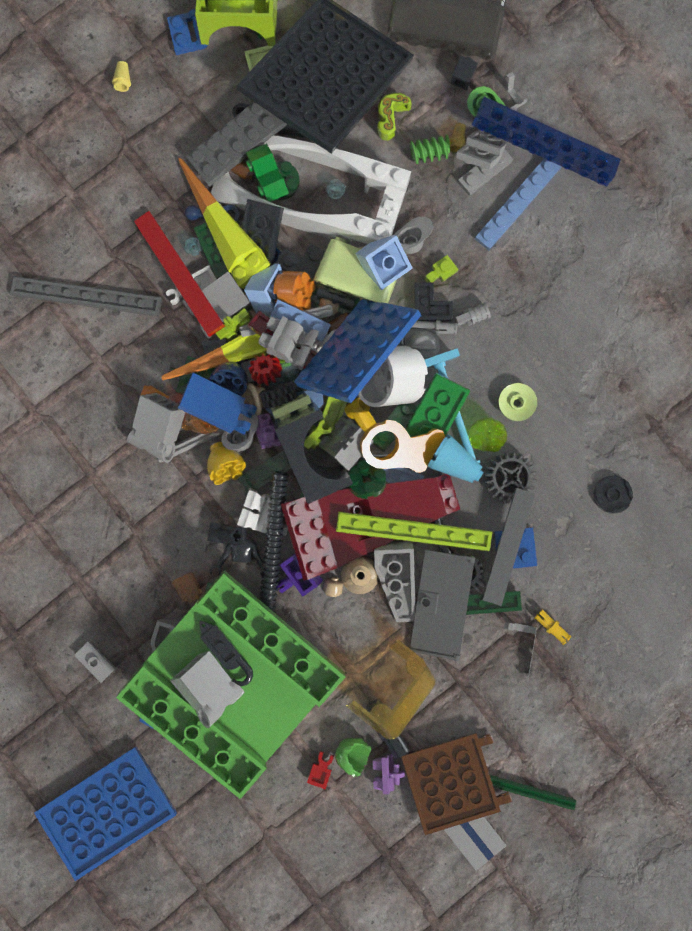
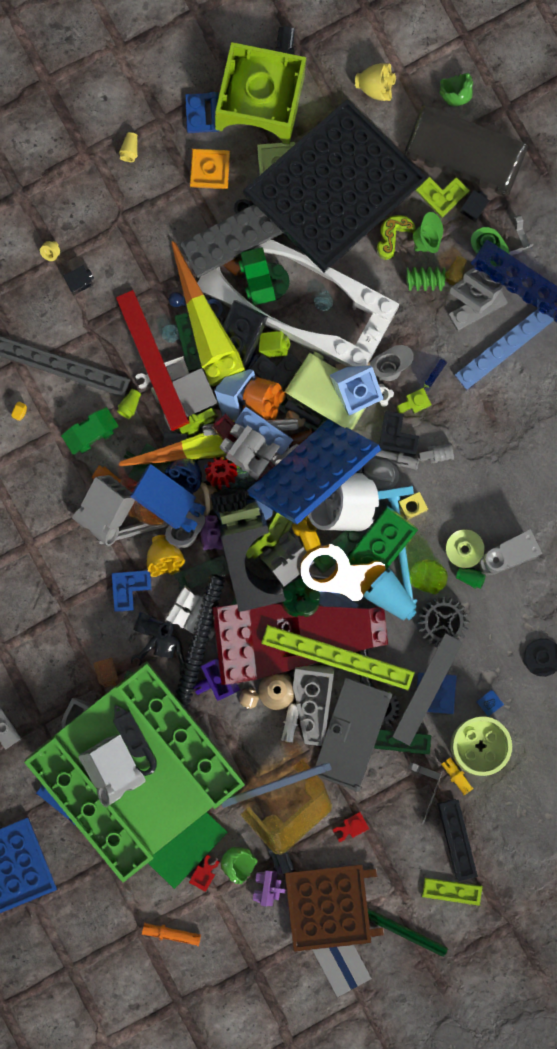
camera: 15 degrees right, 0 degrees up
(57, 347) = (19, 411): none -> yellow tile
(61, 187) = (50, 250): none -> light yellow tile
(94, 210) = (79, 280): none -> black brick
(123, 360) = (82, 435): none -> green brick
(164, 321) = (129, 404): none -> lime cone
(190, 500) = (125, 584): none -> blue plate
(203, 83) = (210, 168): none -> light orange plate
(295, 237) = (274, 344): none -> lime brick
(299, 749) = (187, 849): none -> green tile
(302, 838) = (171, 934): none -> orange pin
(378, 605) = (290, 723): none -> white axle
(379, 669) = (277, 784): none -> sand blue tile
(412, 273) = (387, 395): none -> white plate
(424, 107) = (429, 234): none -> bright green piece
(430, 73) = (442, 200): none -> lime plate
(455, 241) = (434, 375): none -> clear blue tile
(460, 694) = (353, 825): none -> red plate
(463, 363) = (418, 500): none -> light yellow brick
(529, 429) = (471, 577): none -> green cone
(564, 398) = (510, 554): none -> light grey piece
(568, 692) = (457, 839): none -> black fence
(569, 742) = (452, 891): none -> lime tile
(570, 548) = (490, 703): none -> blue slope
(588, 598) = (492, 757): none -> yellowish green brick

